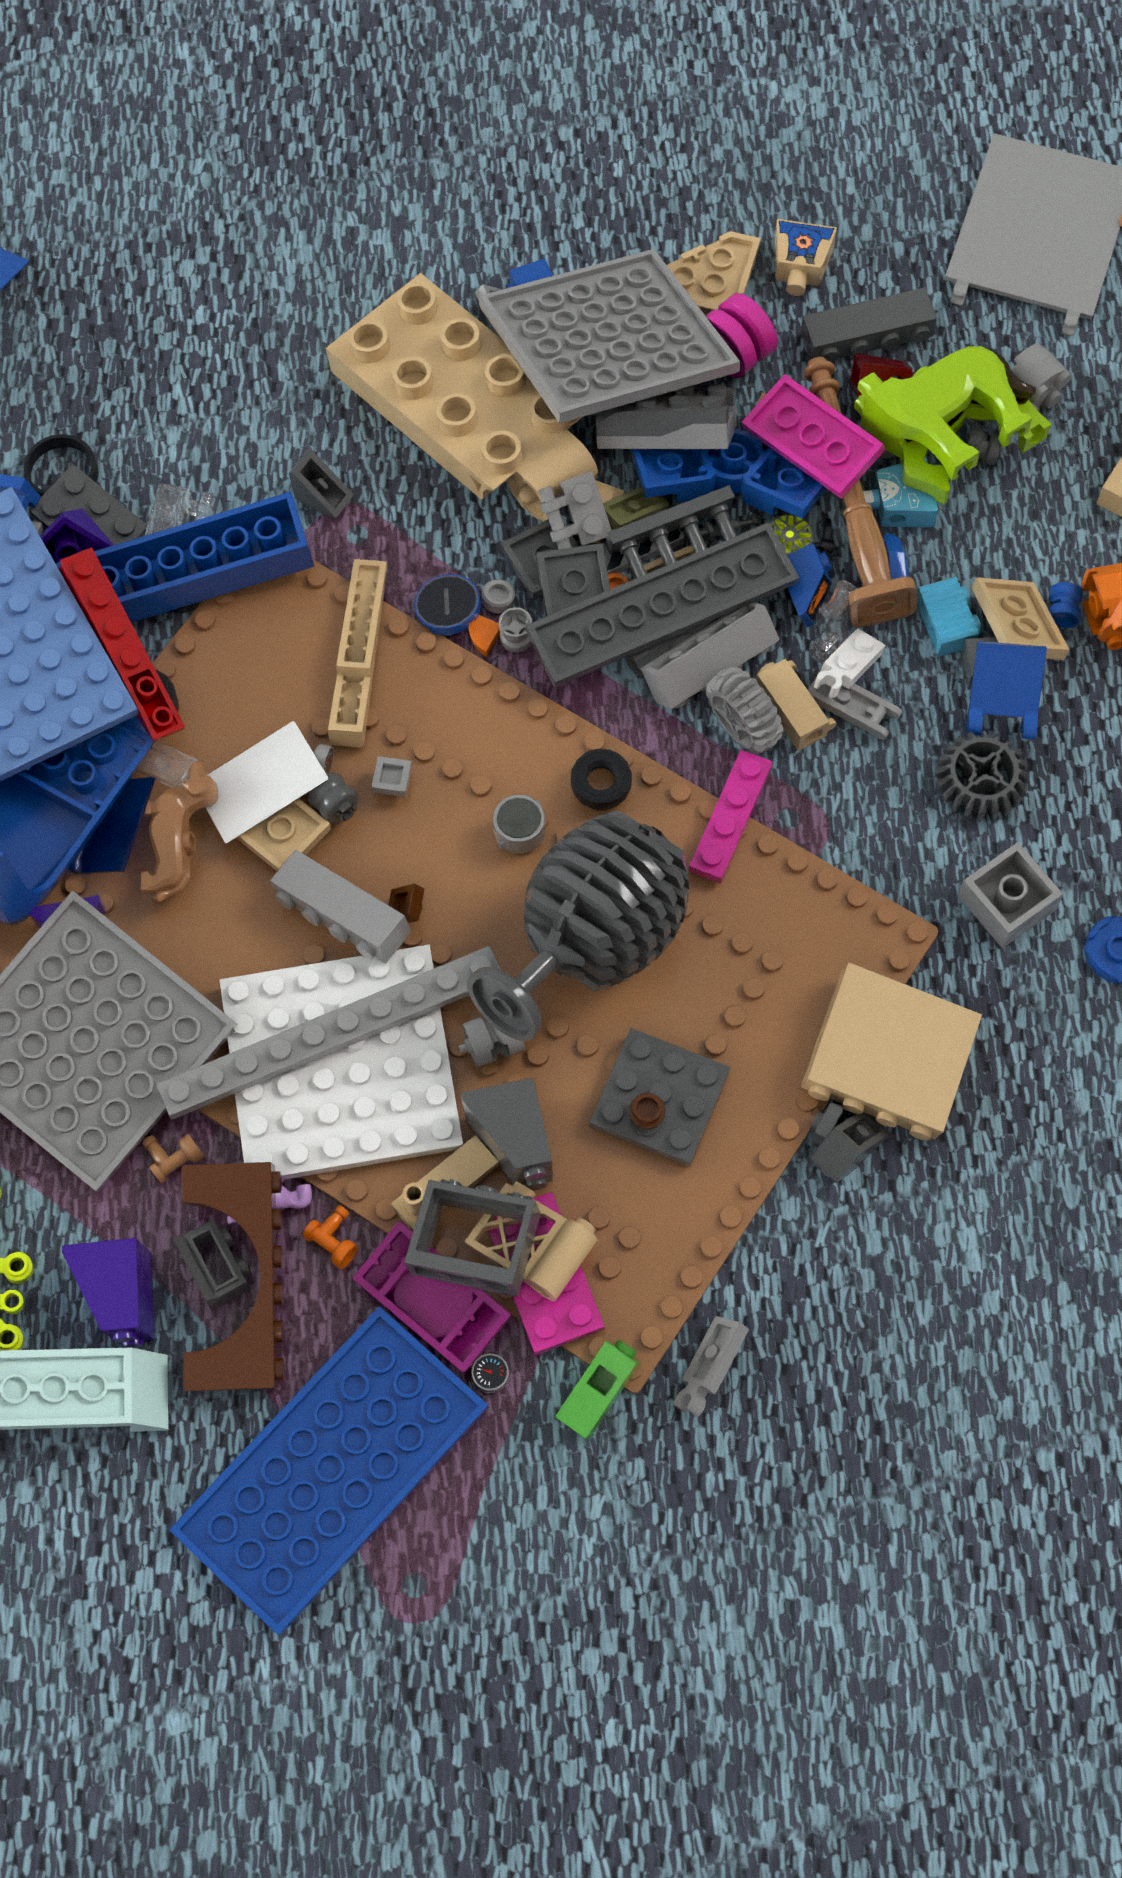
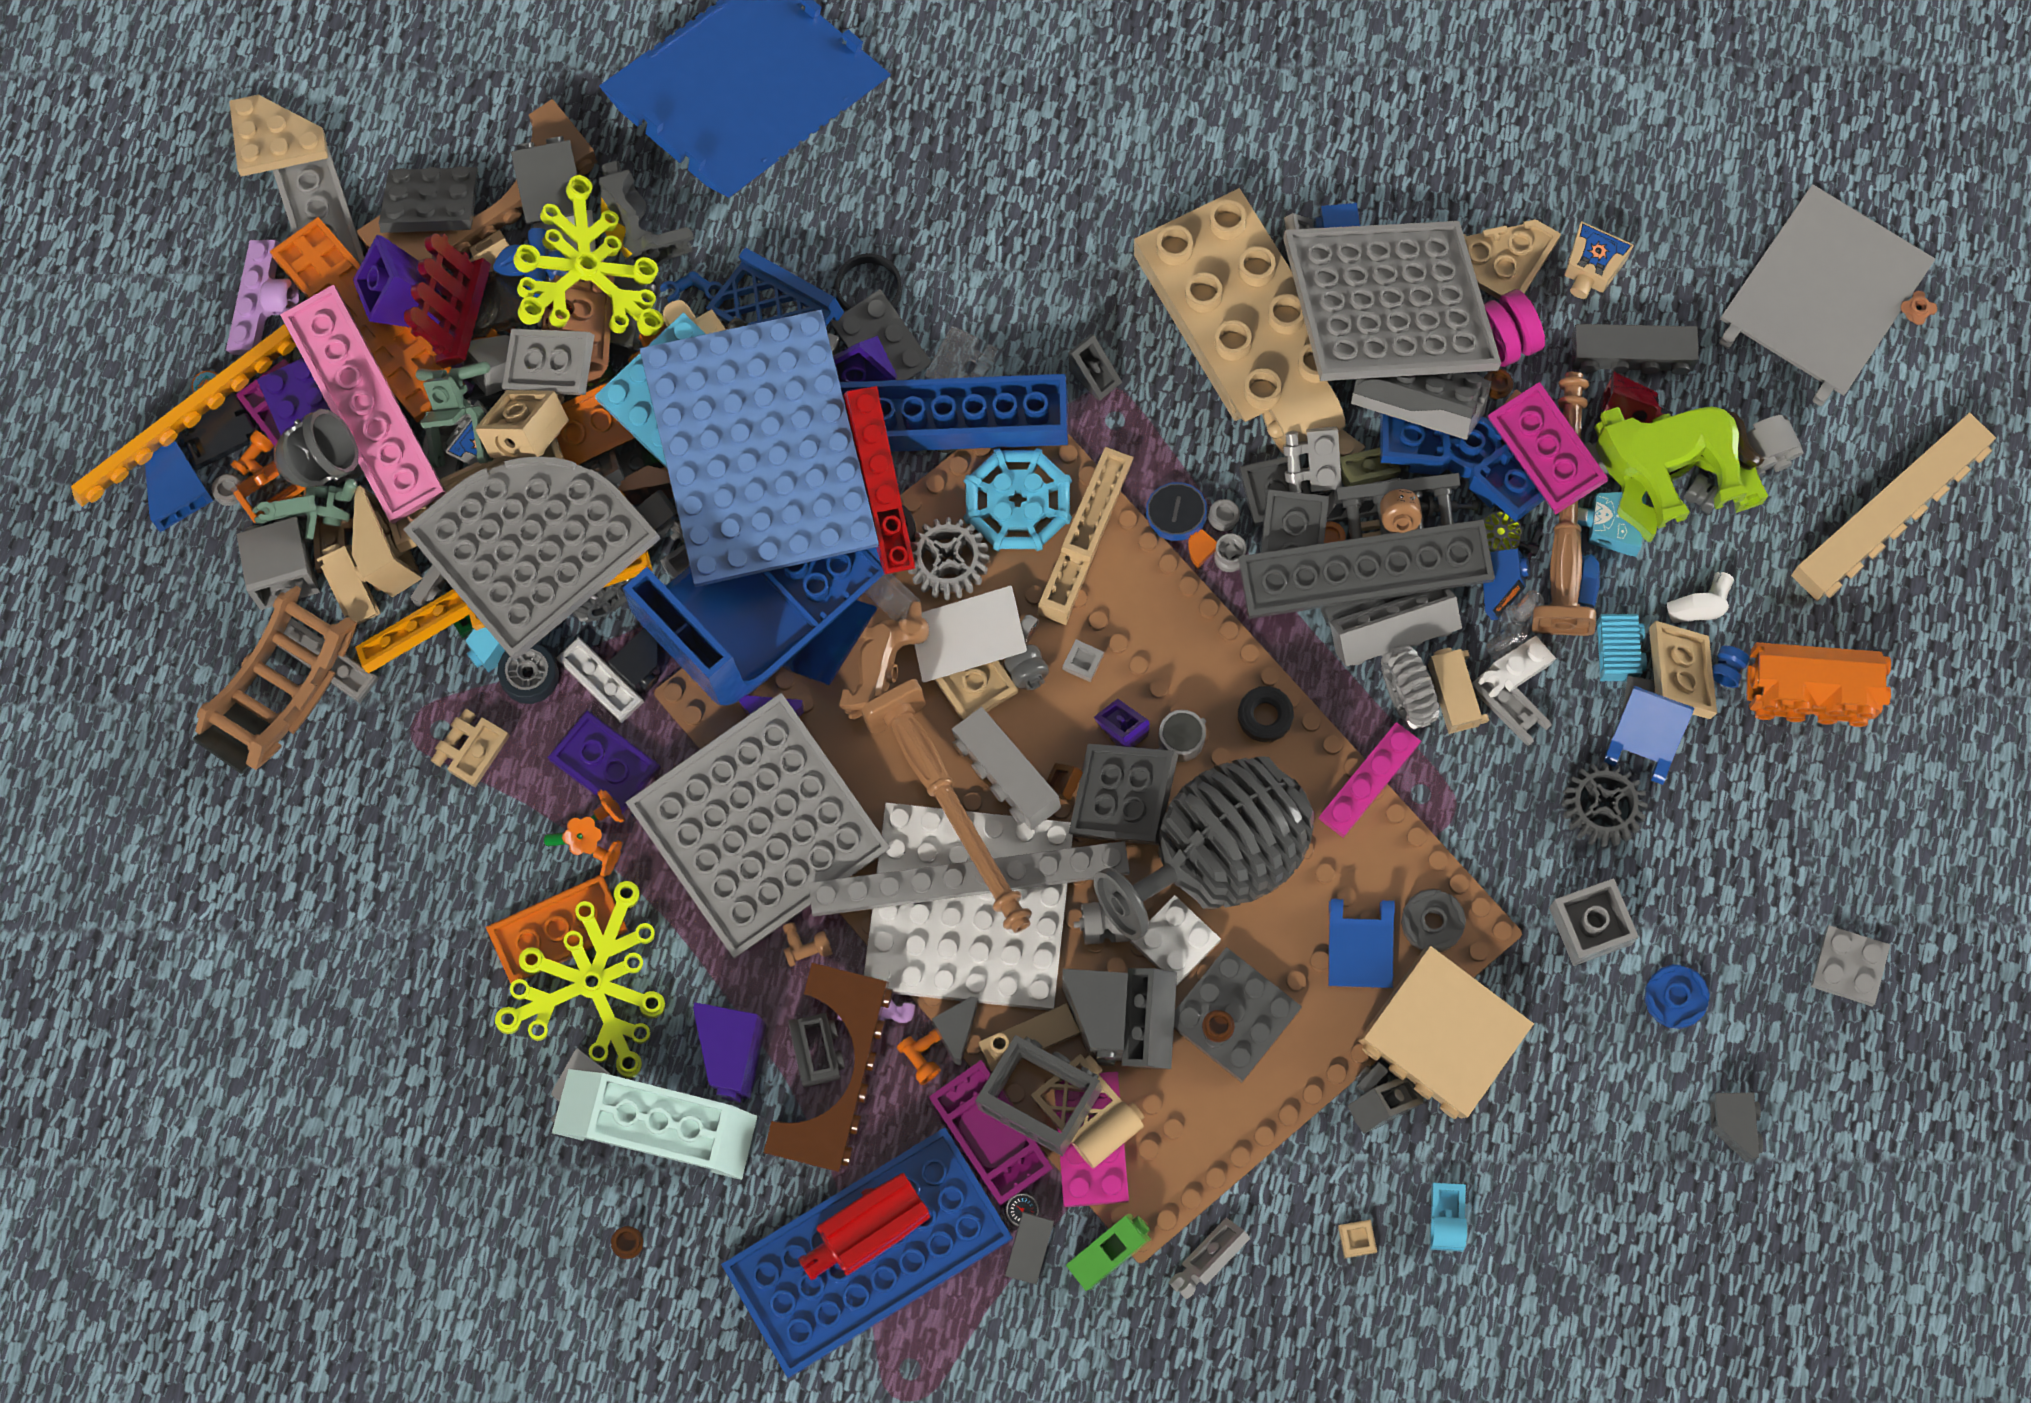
camera: 15 degrees right, 5 degrees up
(56, 1537) = (627, 1242): none -> reddish brown plate
(206, 877) = (897, 712): none -> medium nougat piece
(221, 727) = (966, 574): none -> light grey gear
(270, 618) = (1017, 482): none -> medium azure plate
(322, 1438) = (866, 1227): none -> red piece
(360, 1194) = (955, 1027): none -> dark grey slope
(454, 830) = (1123, 724): none -> dark purple slope
(474, 898) = (1123, 793): none -> dark grey plate
(509, 1411) = (1029, 1248): none -> dark grey tile
(571, 1123) = (1149, 1018): none -> dark grey brick
(574, 1037) = (1176, 939): none -> white plate
(681, 535) = (1400, 511): none -> medium nougat head
(745, 395) = (1501, 383): none -> reddish brown plate
(774, 989) = (1361, 948): none -> blue flag
(841, 921) = (1441, 904): none -> dark grey tile
(864, 1298) = (1357, 1239): none -> tan tile
(954, 1247) = (1448, 1218): none -> medium azure plate
(1018, 552) = (1703, 605): none -> white arm

